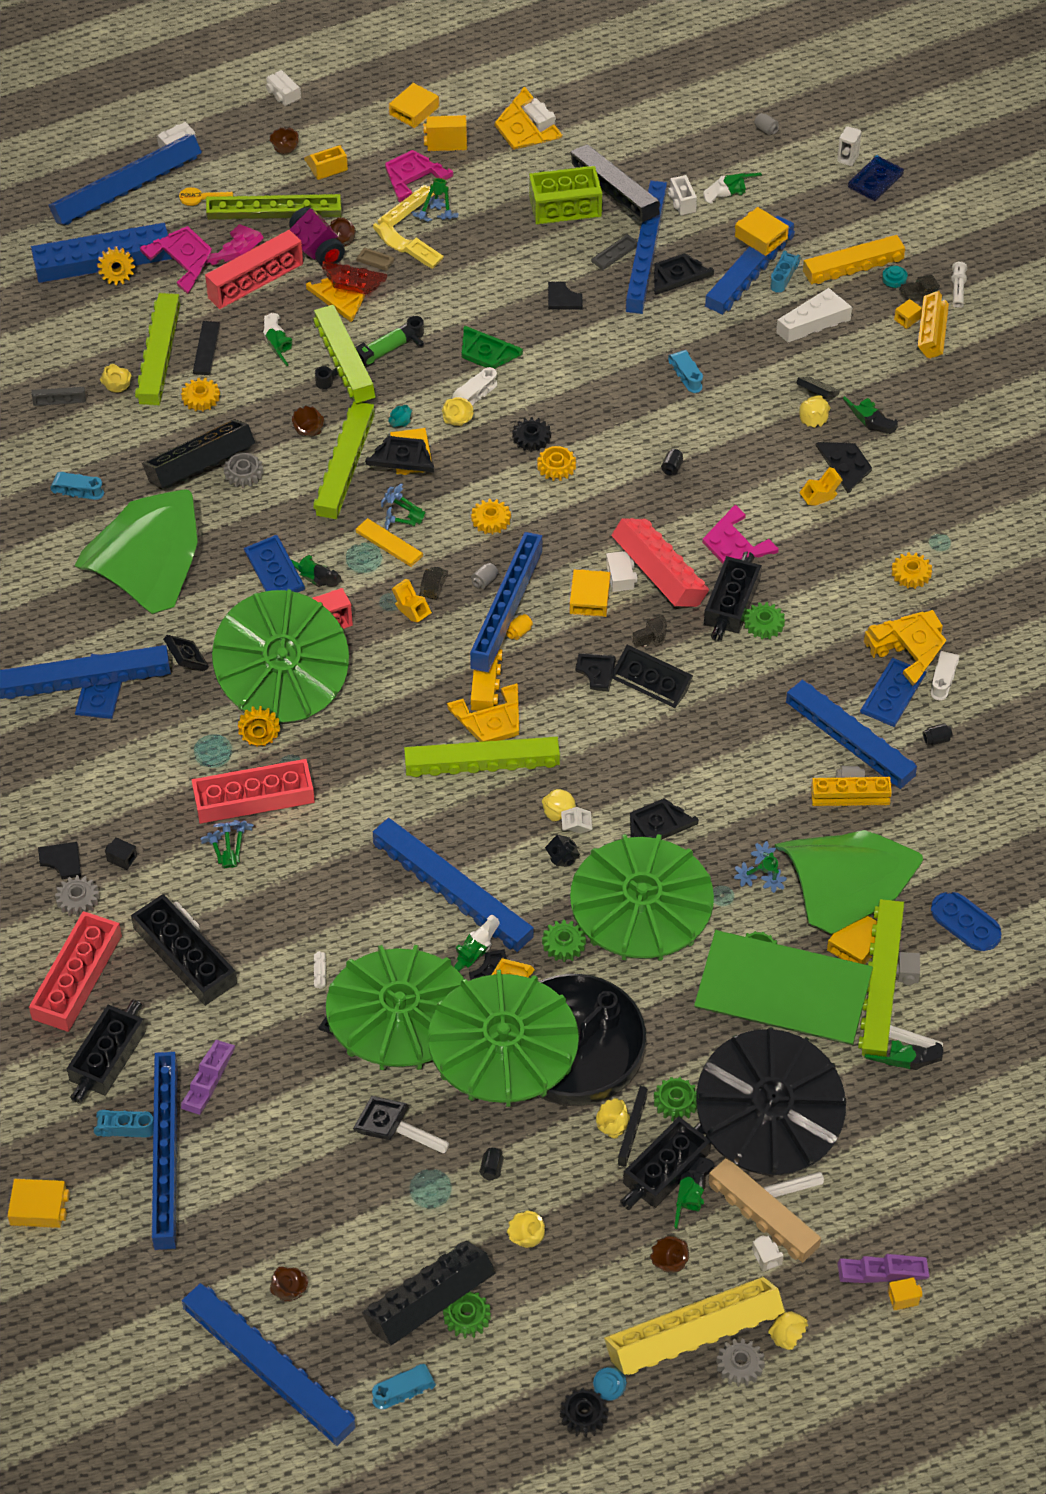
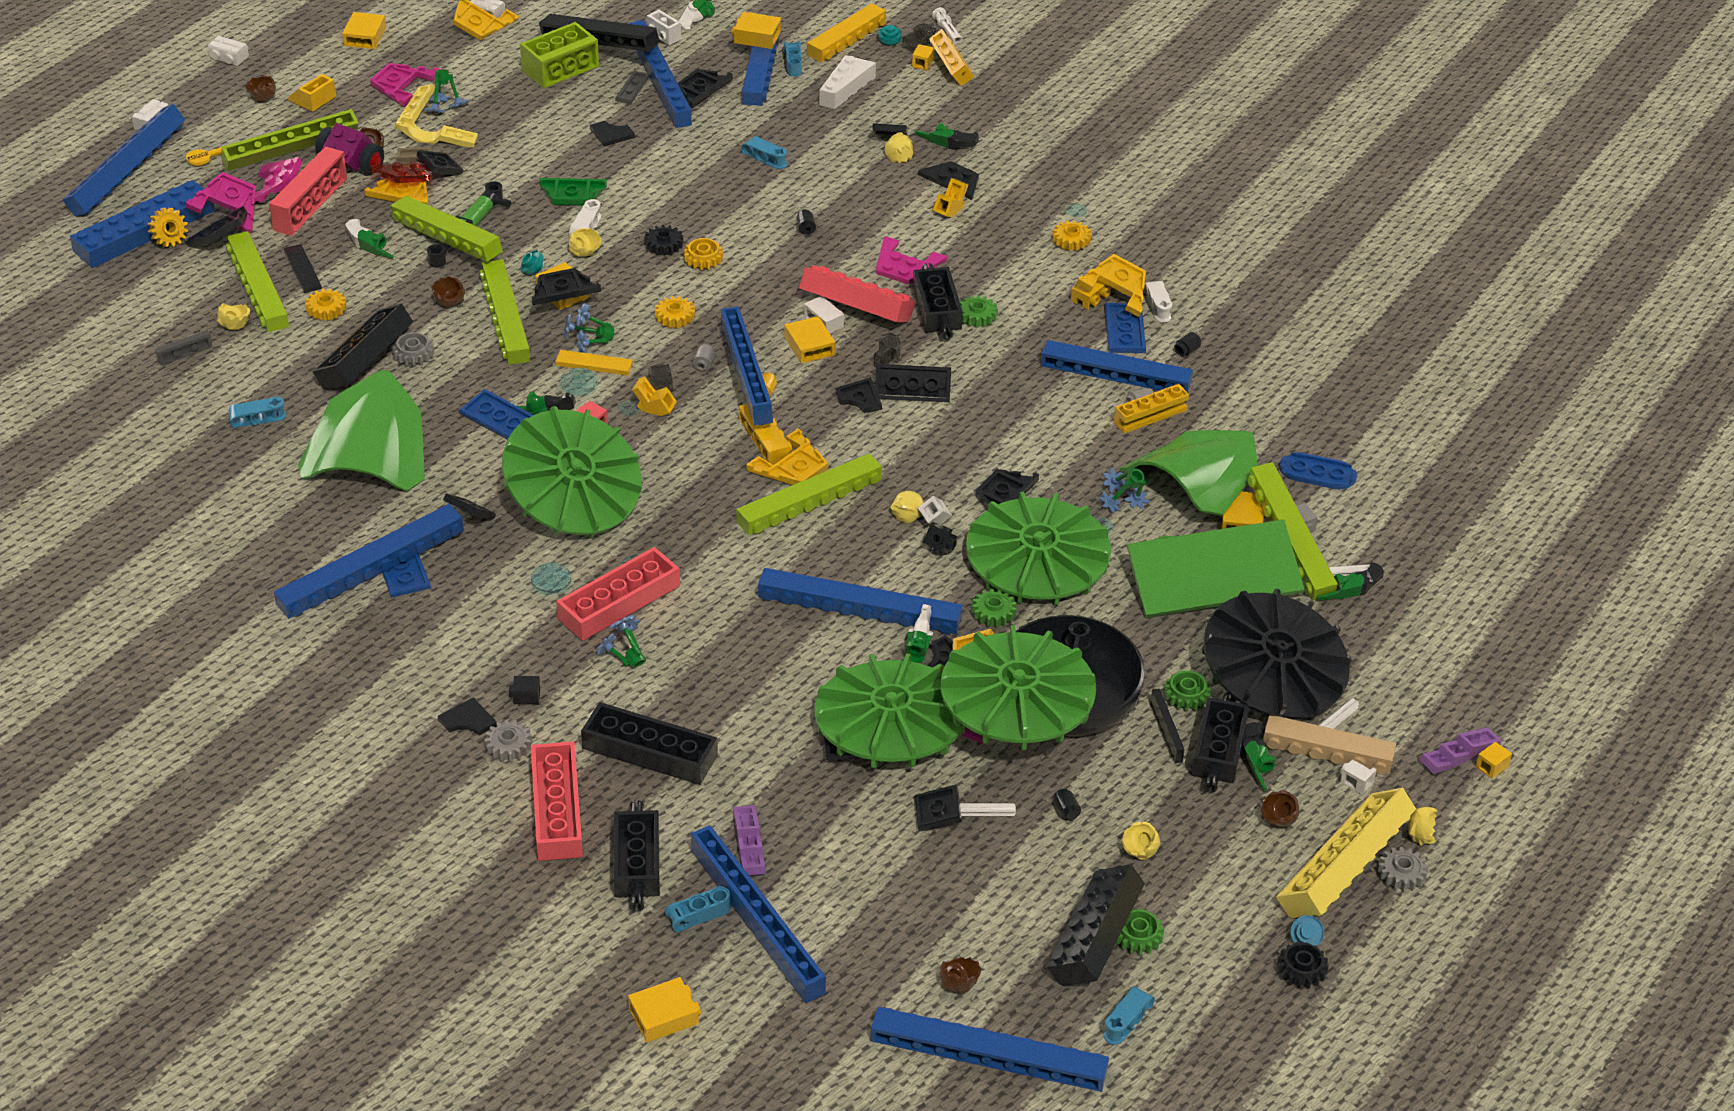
camera: 30 degrees left, 10 degrees down
(159, 282) = (215, 231): none -> black wing
(268, 726) = (578, 535): yellow gear -> none
(319, 970) = (788, 714): white axle -> none
(388, 277) = (439, 162): none -> black tile
(428, 1194) = (1025, 848): clear light blue tile -> none
(445, 133) = (413, 40): yellow brick -> none
(612, 1118) = (1147, 724): light yellow hair -> none

